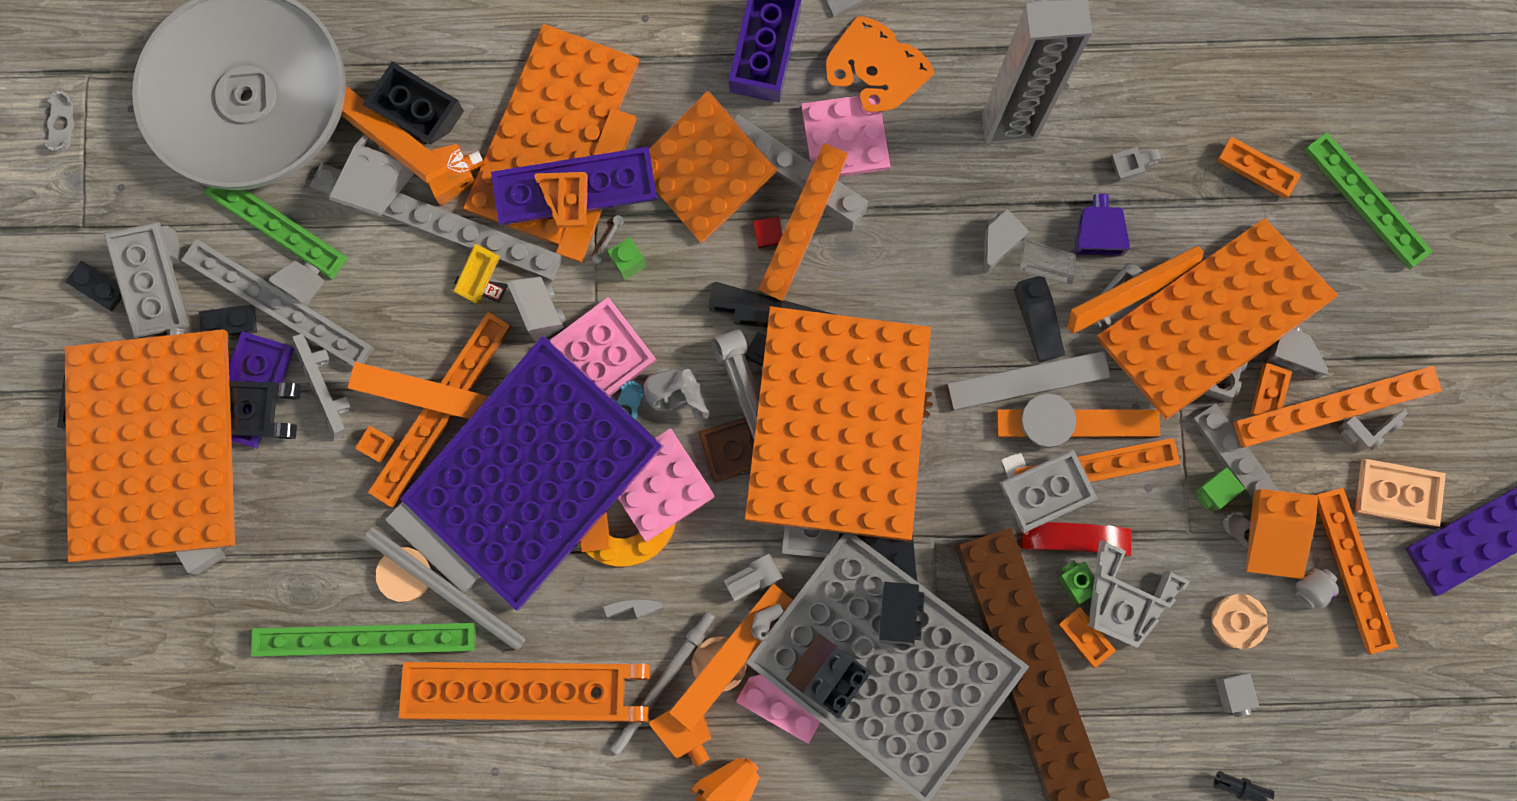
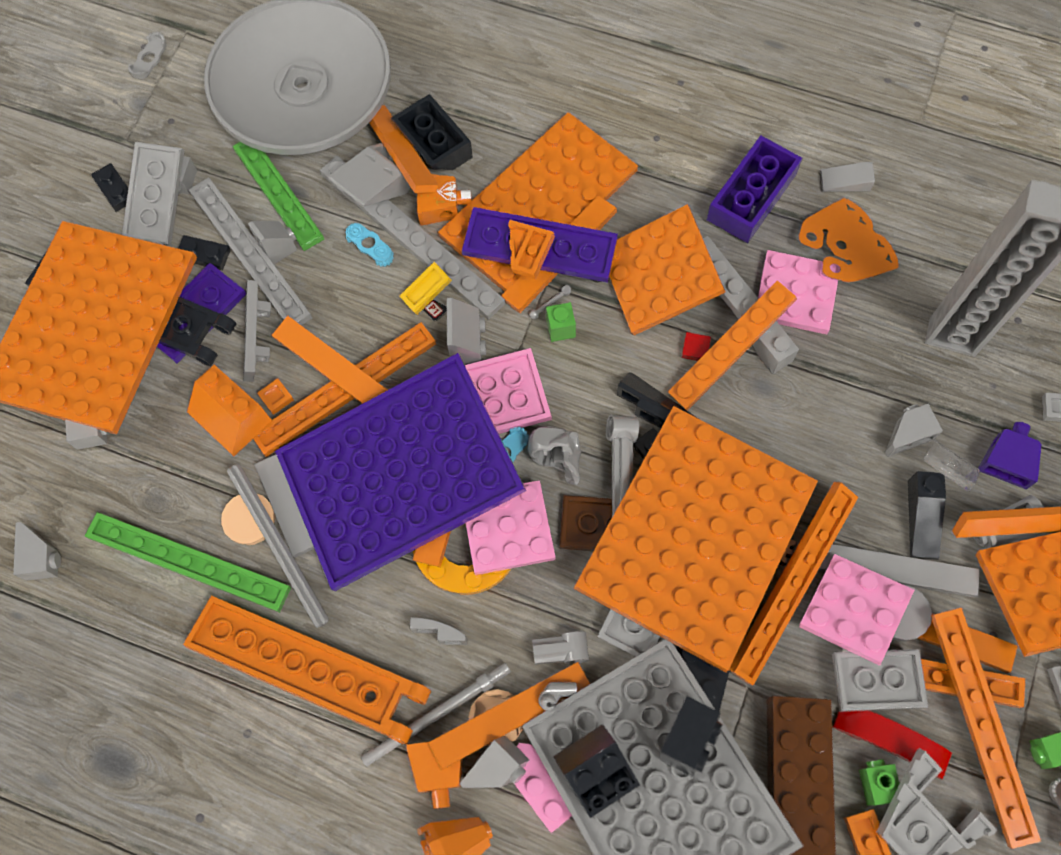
camera: 25 degrees right, 10 degrees down
(210, 693) = (34, 555): none -> light grey slope
(333, 479) = (226, 410): none -> orange slope
(413, 251) = (379, 252): none -> medium azure piece
(739, 707) = (497, 766): none -> light grey slope
(942, 431) = (793, 583): none -> orange plate
(1006, 434) = (857, 609): none -> bright pink plate
(1151, 495) = (985, 729): none -> orange plate

